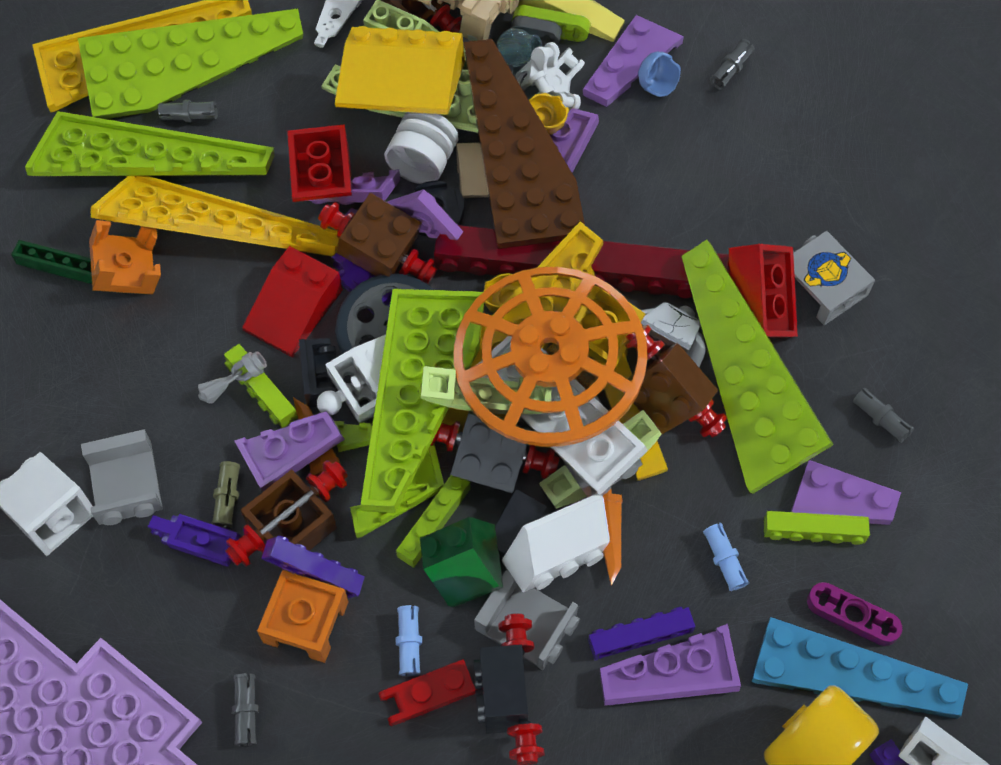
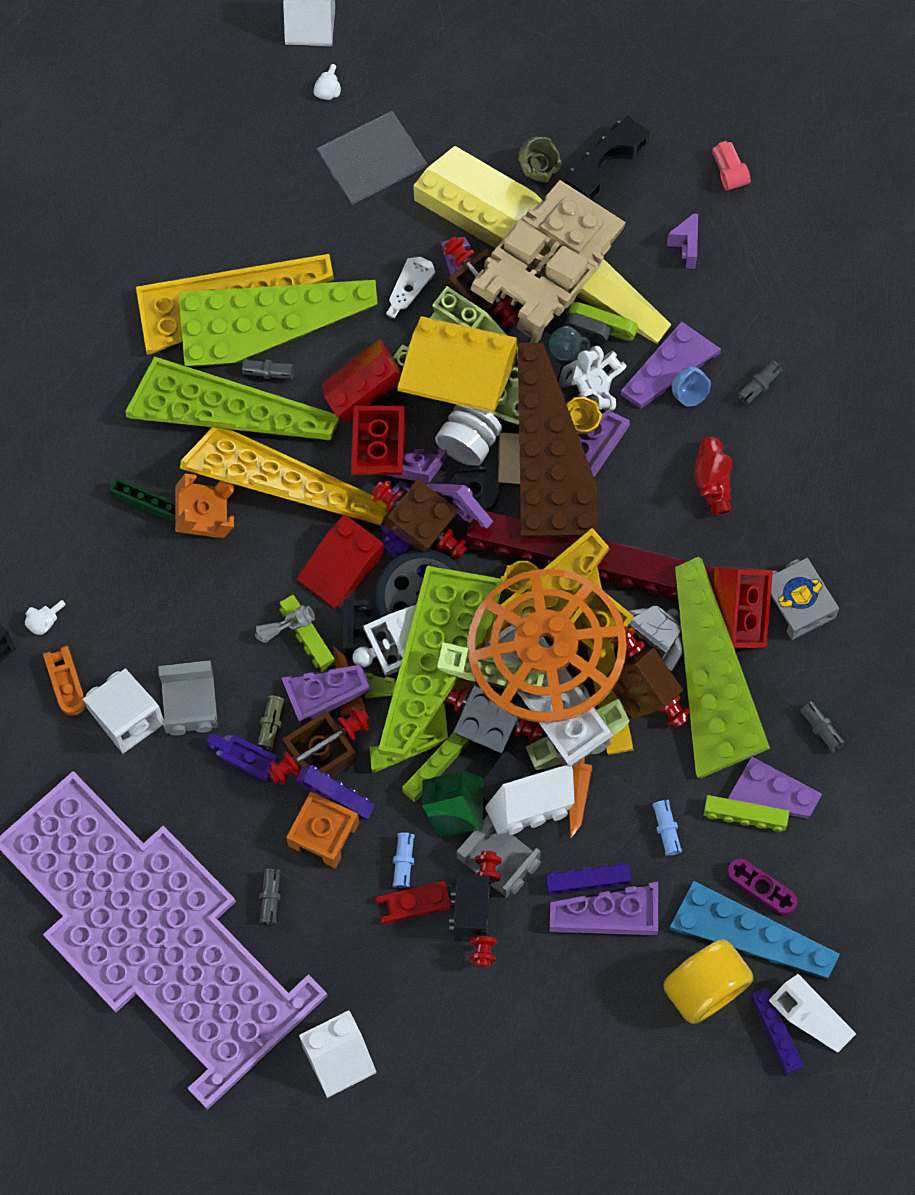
camera: 10 degrees right, 5 degrees up
(295, 107) = (362, 381): none -> red slope
(702, 161) = (713, 475): none -> red animal

